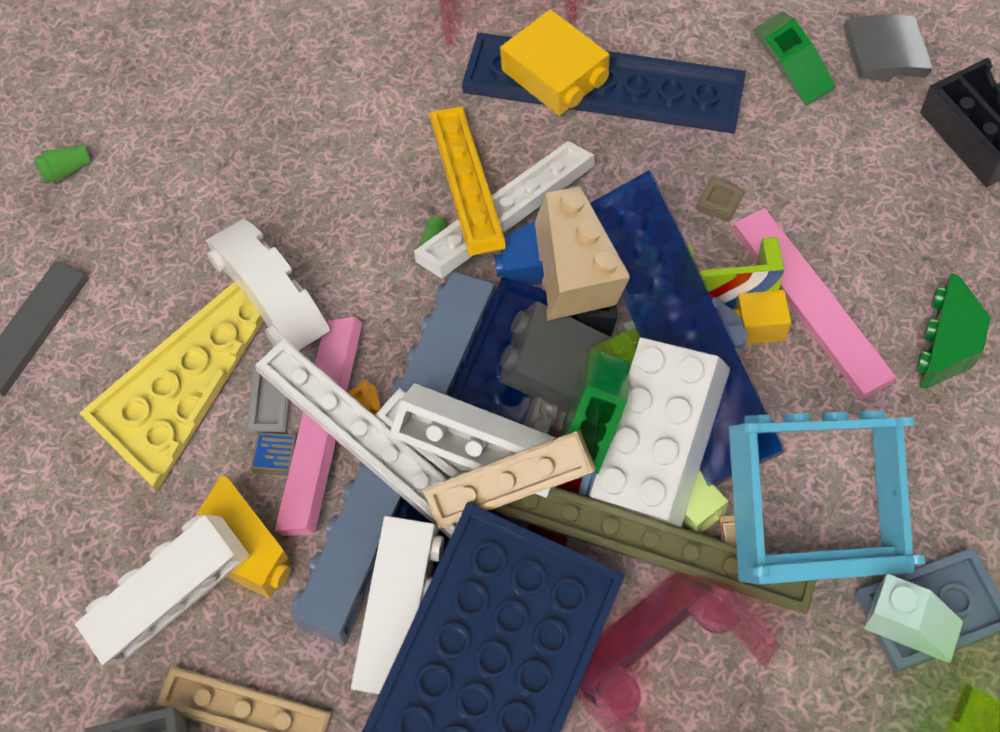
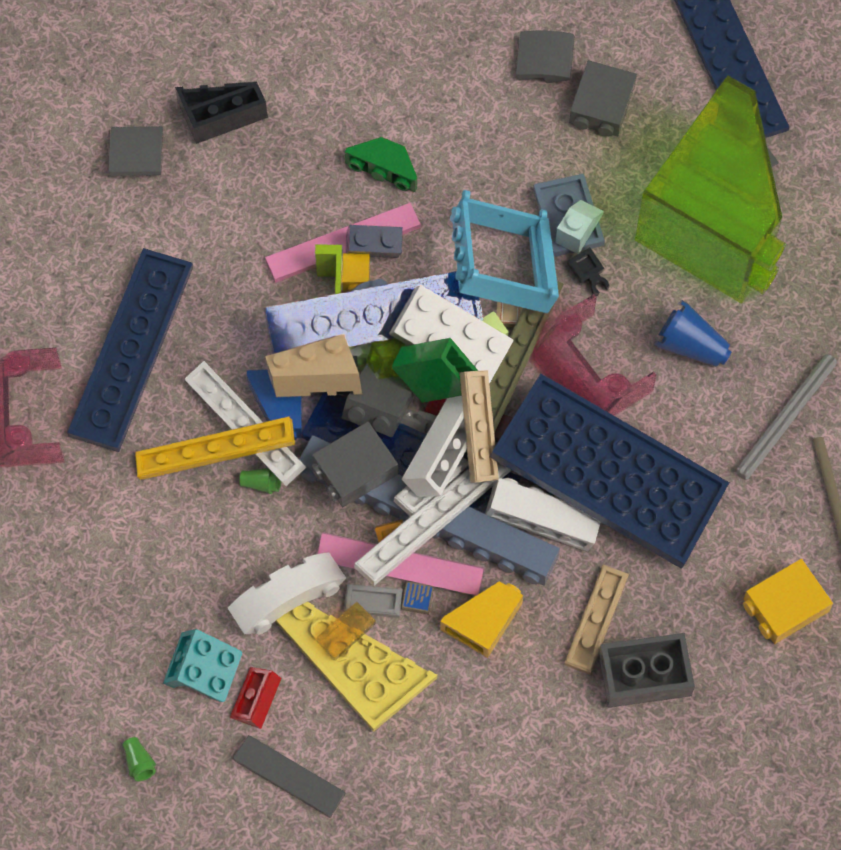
camera: 90 degrees left, 5 degrees up
(137, 278) = (256, 697): none -> red slope
(161, 589) = (520, 655): white brick -> none
(174, 214) = (203, 665): none -> teal bracket
(214, 361) = (346, 631): none -> clear yellow tile
(445, 332) = (354, 465): none -> dark grey brick
(555, 62) = (120, 374): yellow brick -> none
(720, 199) = (250, 286): dark tan tile -> none
(795, 57) = (132, 214): green slope -> none
(813, 327) = (374, 240): none -> dark blue brick
(843, 646) = (587, 268): none -> black plate

